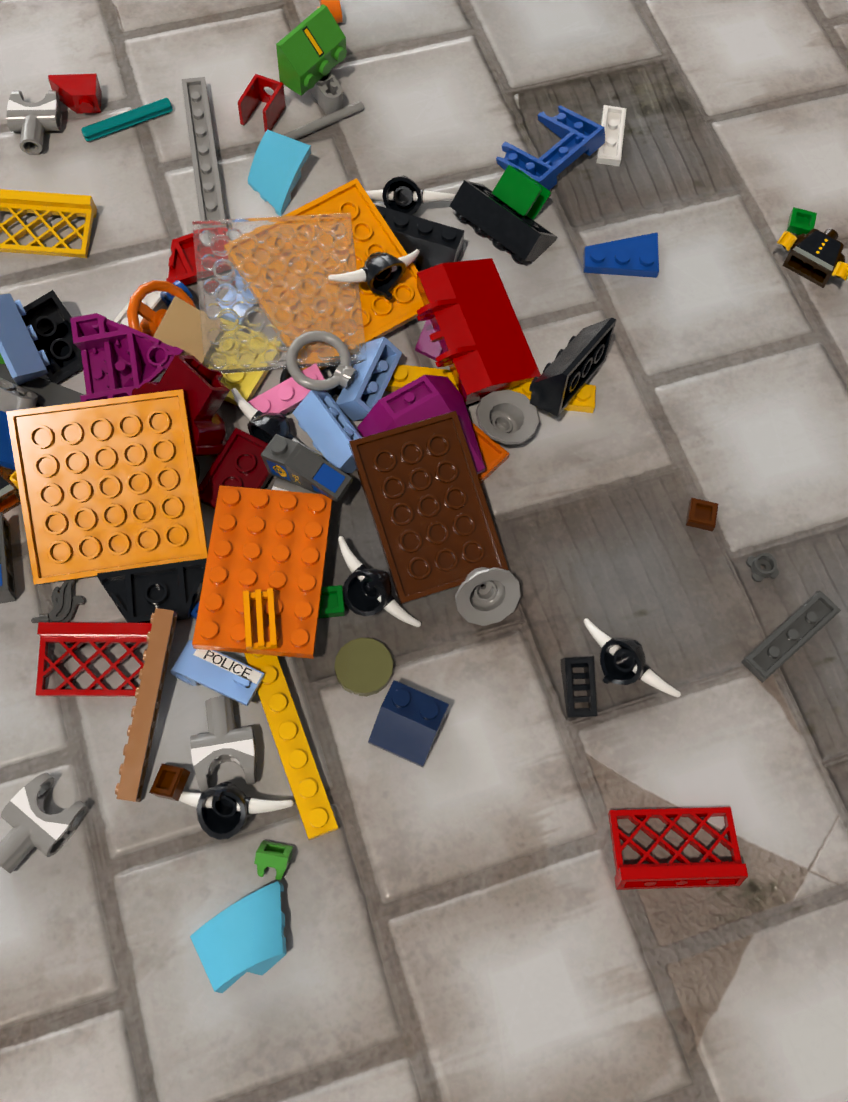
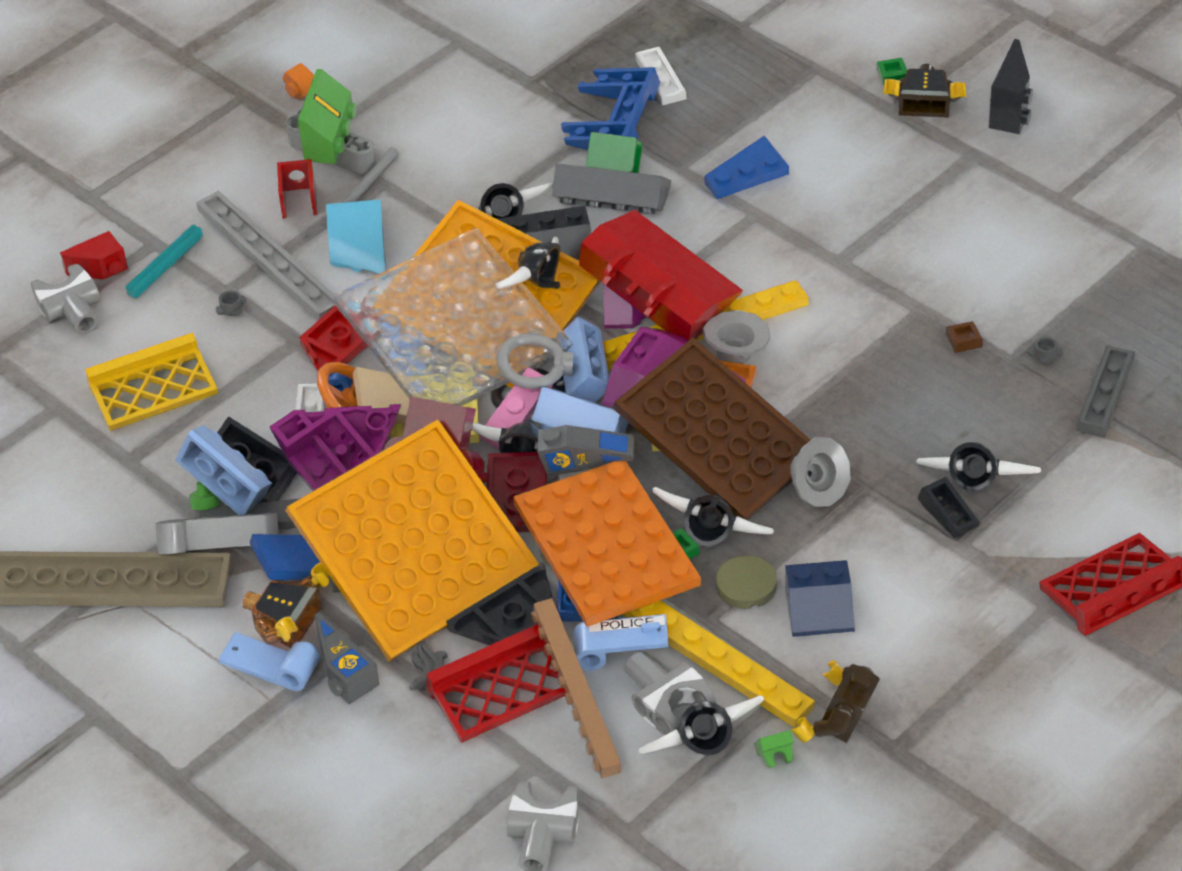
camera: 20 degrees left, 20 degrees down
(147, 182) = (230, 303): none -> dark grey plate
(170, 782) = (639, 739): reddish brown tile -> none
(243, 938) = (792, 808): medium azure slope -> none
(258, 596) = (640, 565): light orange tile -> none
(359, 853) = (847, 705): none -> dark brown torso
(572, 368) = (768, 268): black slope -> none

